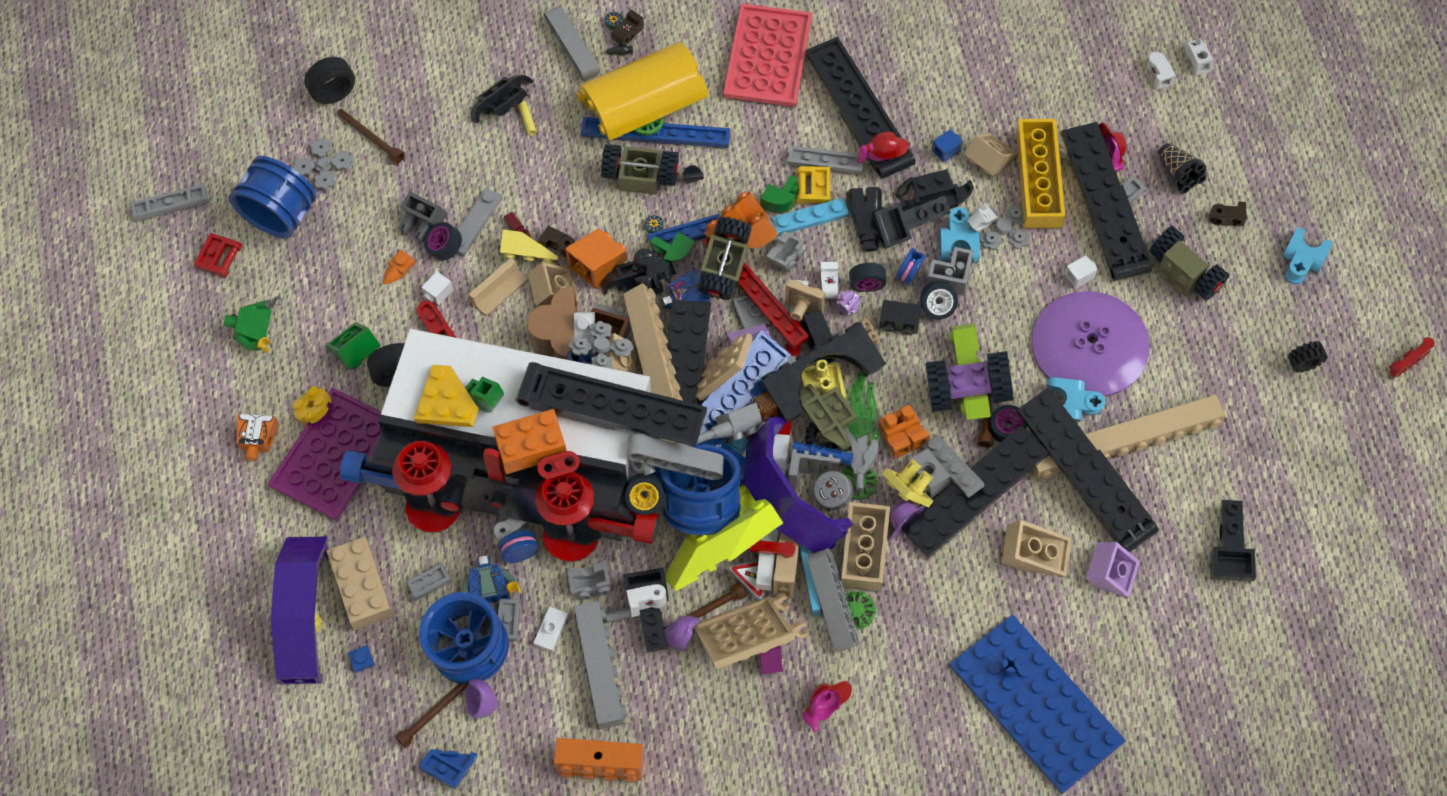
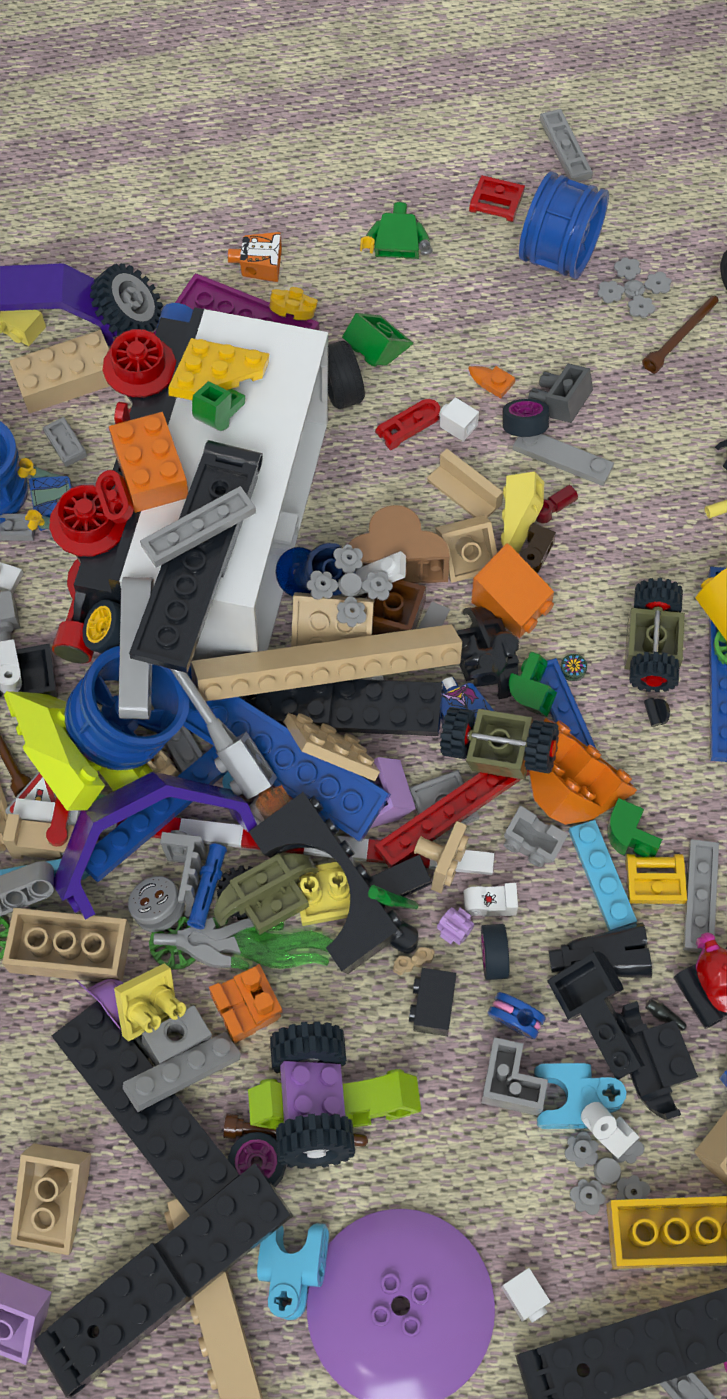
camera: 90 degrees right, 0 degrees up
(302, 528) = (134, 296): none -> black wheel
(589, 581) = (47, 607): light grey cylinder -> none
(597, 397) = (198, 526): none -> light grey plate
(838, 329) = (391, 899): none -> green bar
(942, 309) = (448, 1061): wheel -> none

